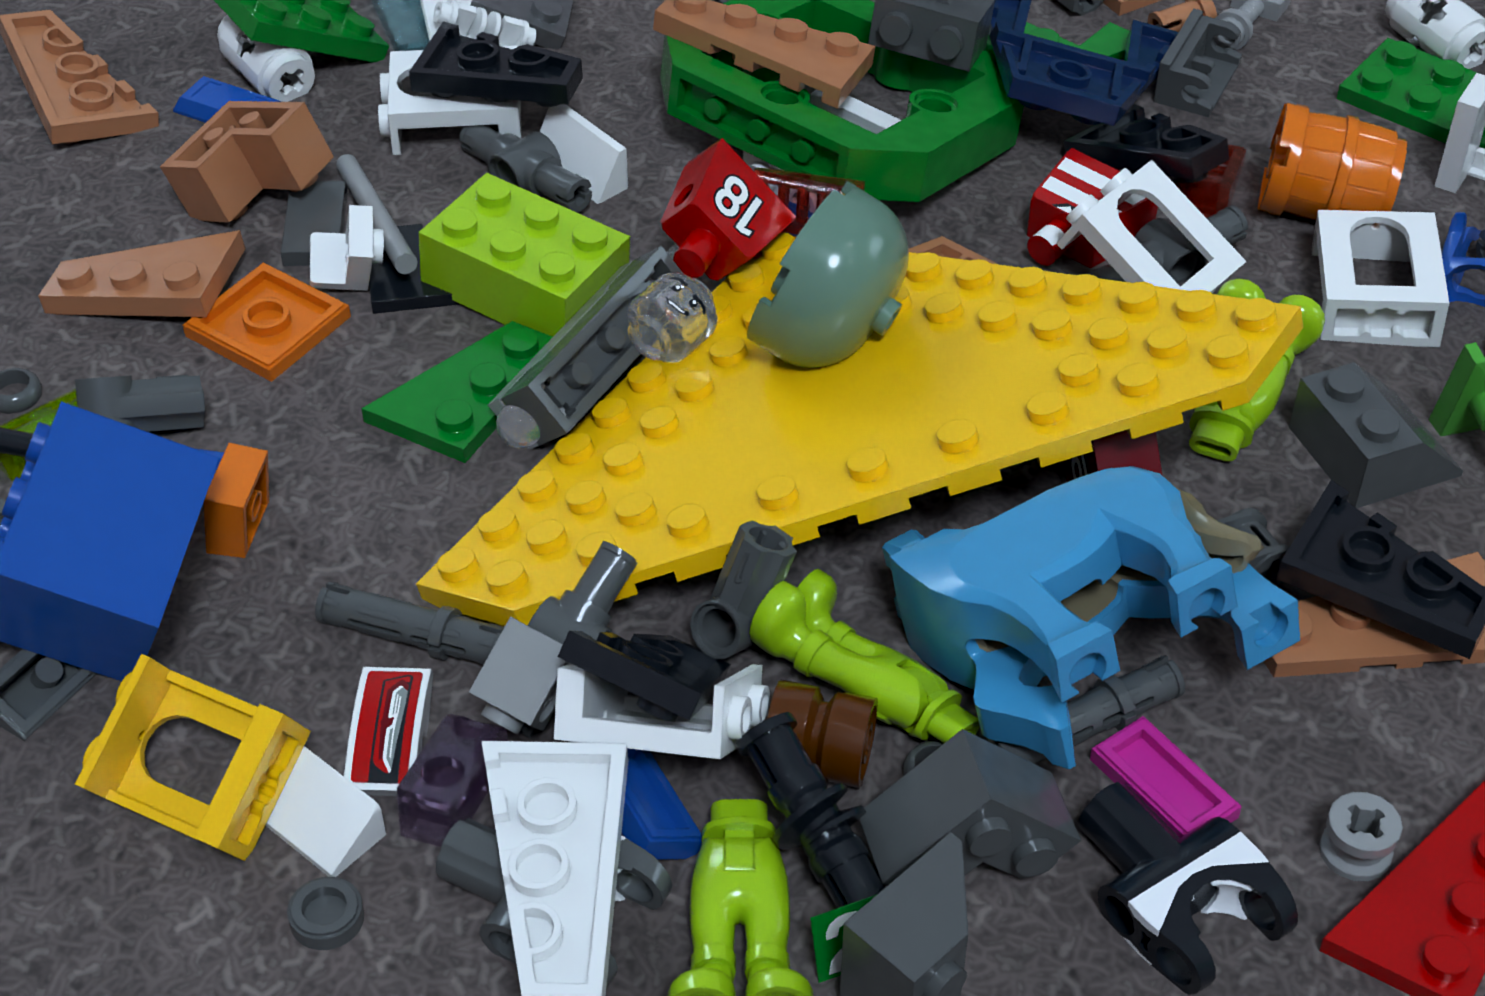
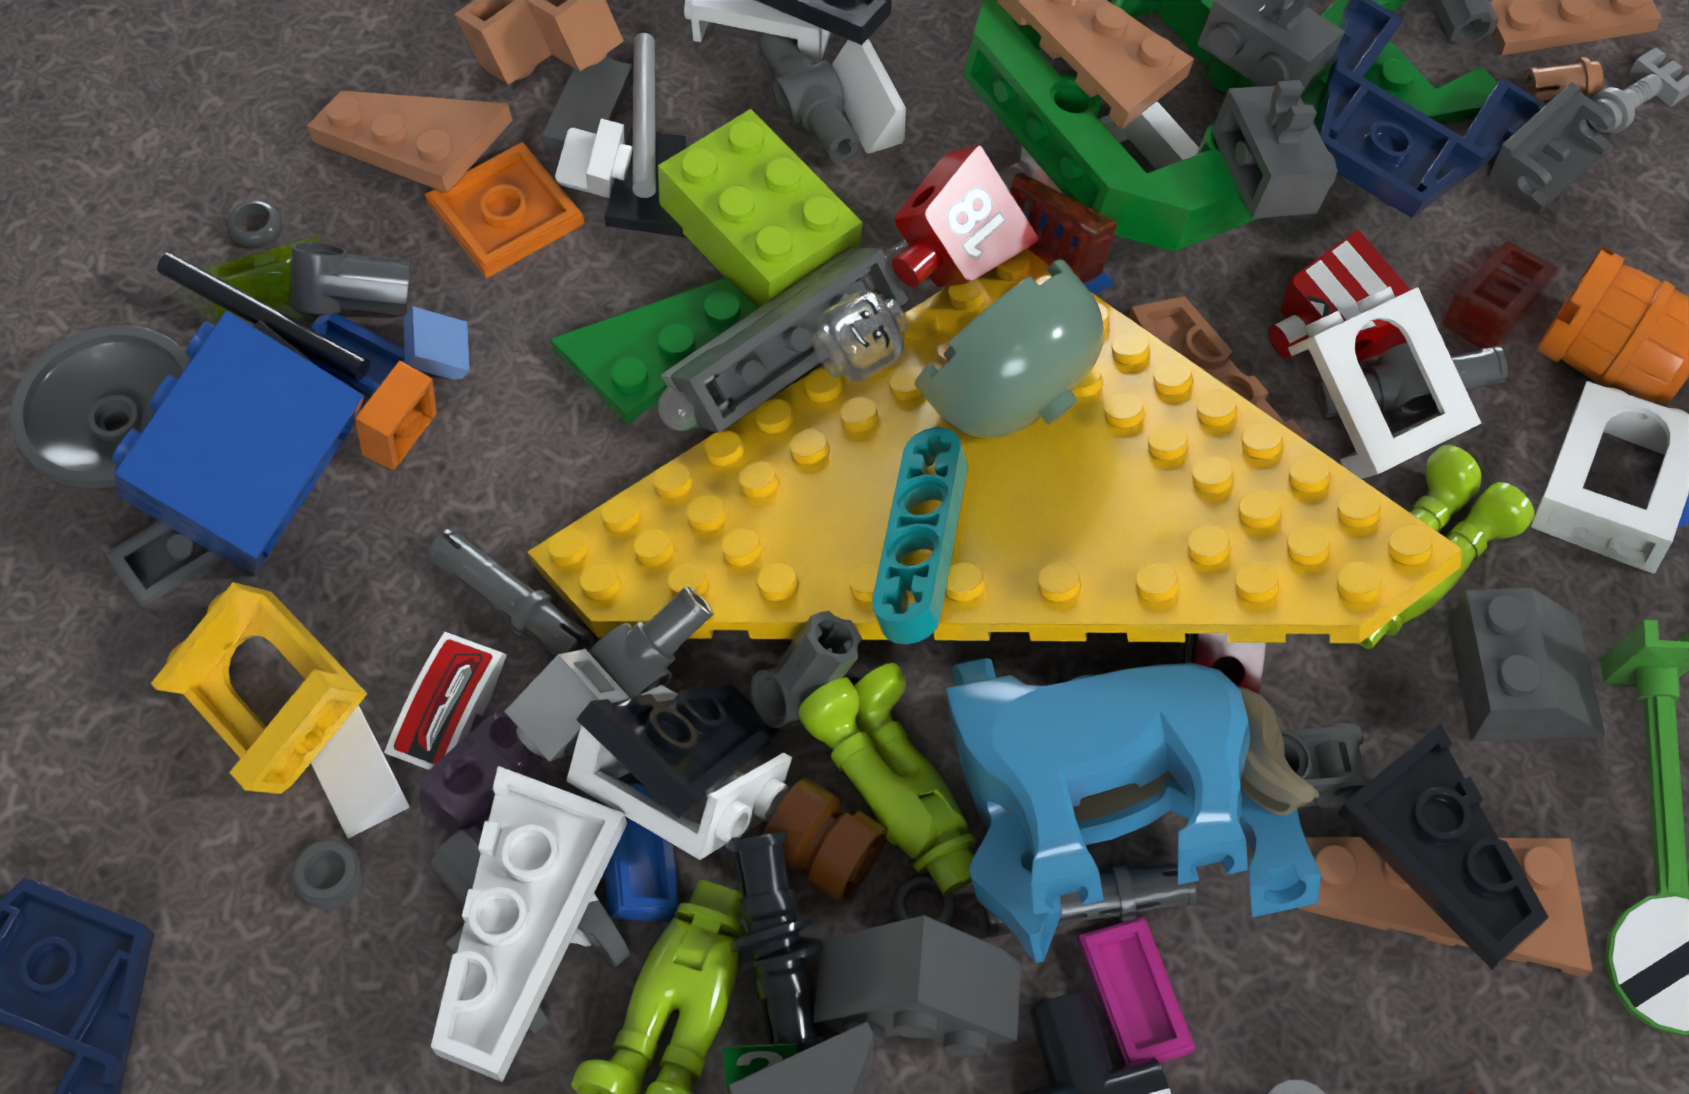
camera: 20 degrees right, 15 degrees up
(248, 430) = (436, 343): none -> medium blue tile
(809, 437) = (915, 532): none -> teal beam
(978, 89) = (1274, 150): none -> dark grey brick
(1135, 140) = (1447, 248): black wing -> none

